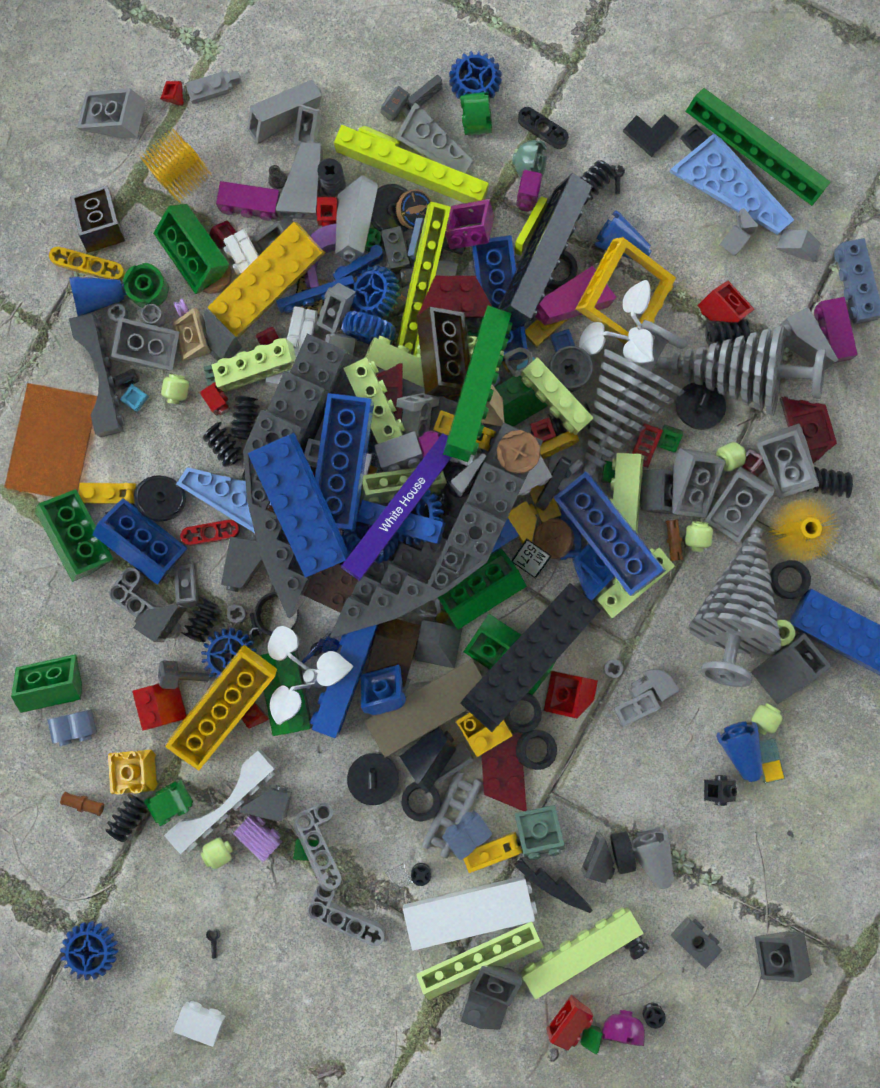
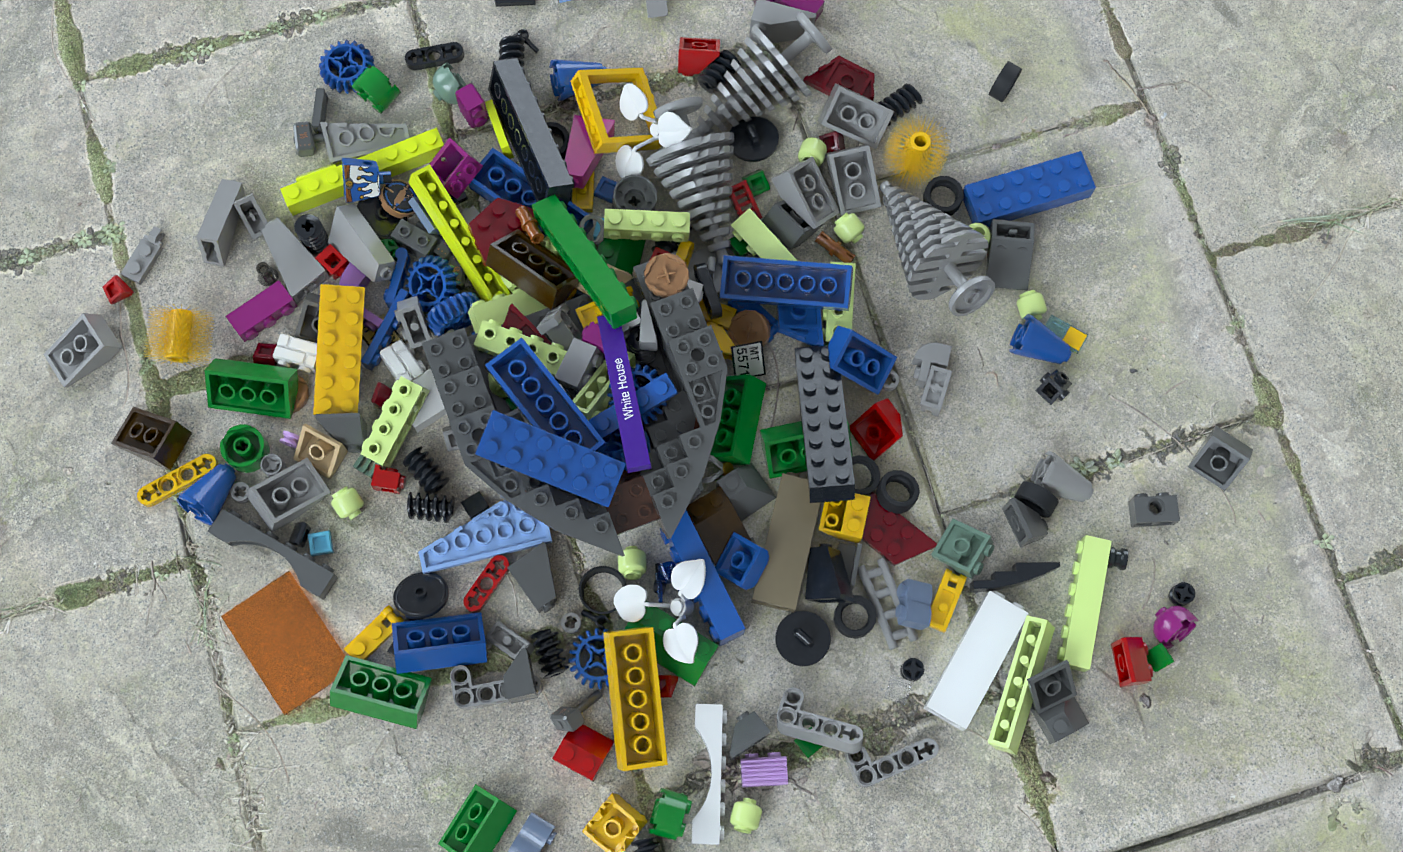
camera: 55 degrees left, 10 degrees down
(314, 615) = (633, 564): none -> yellowish green head
(400, 172) = (362, 179): none -> torso
(474, 317) = (529, 225): none -> dark orange pin
(604, 636) = (860, 359): none -> blue slope

